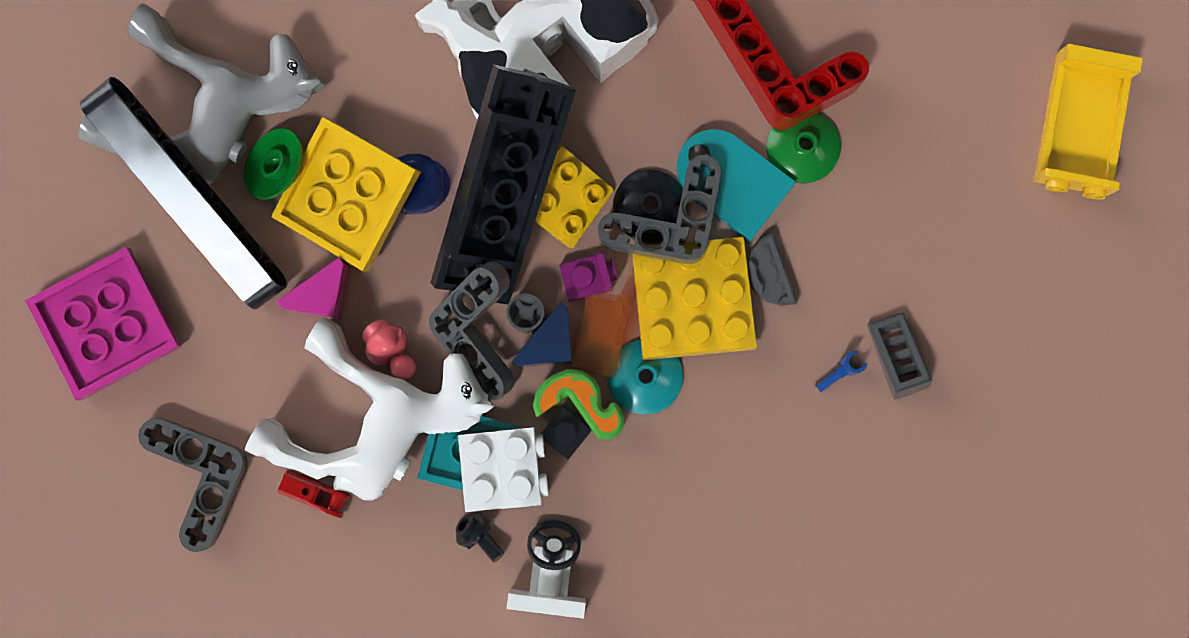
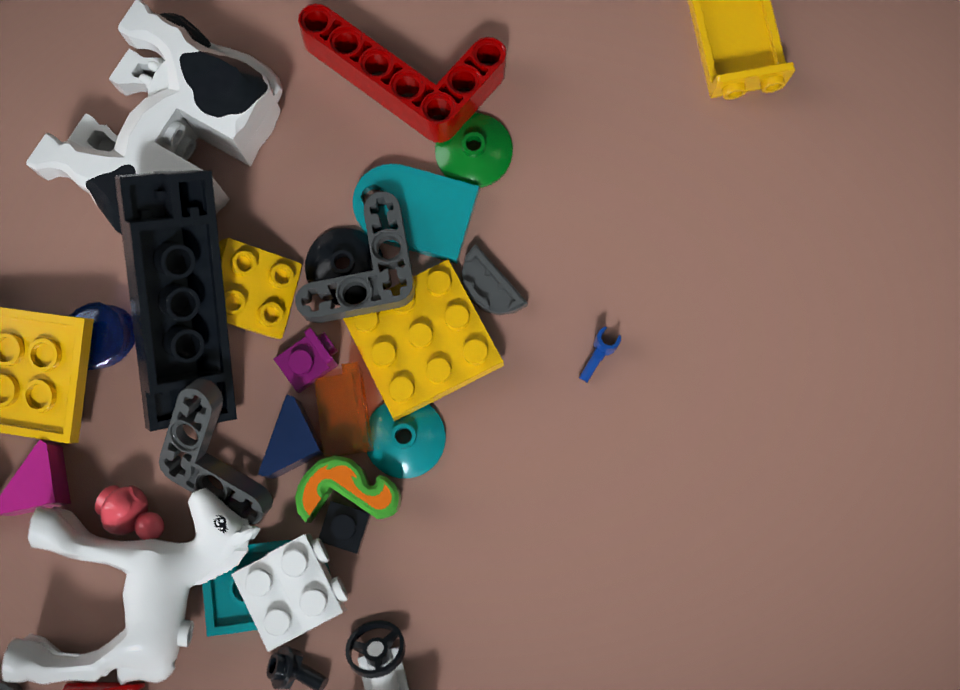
camera: 20 degrees left, 5 degrees down
(523, 308) = (250, 417): dark grey wheel -> none
(912, 351) = (671, 342): dark grey slope -> none

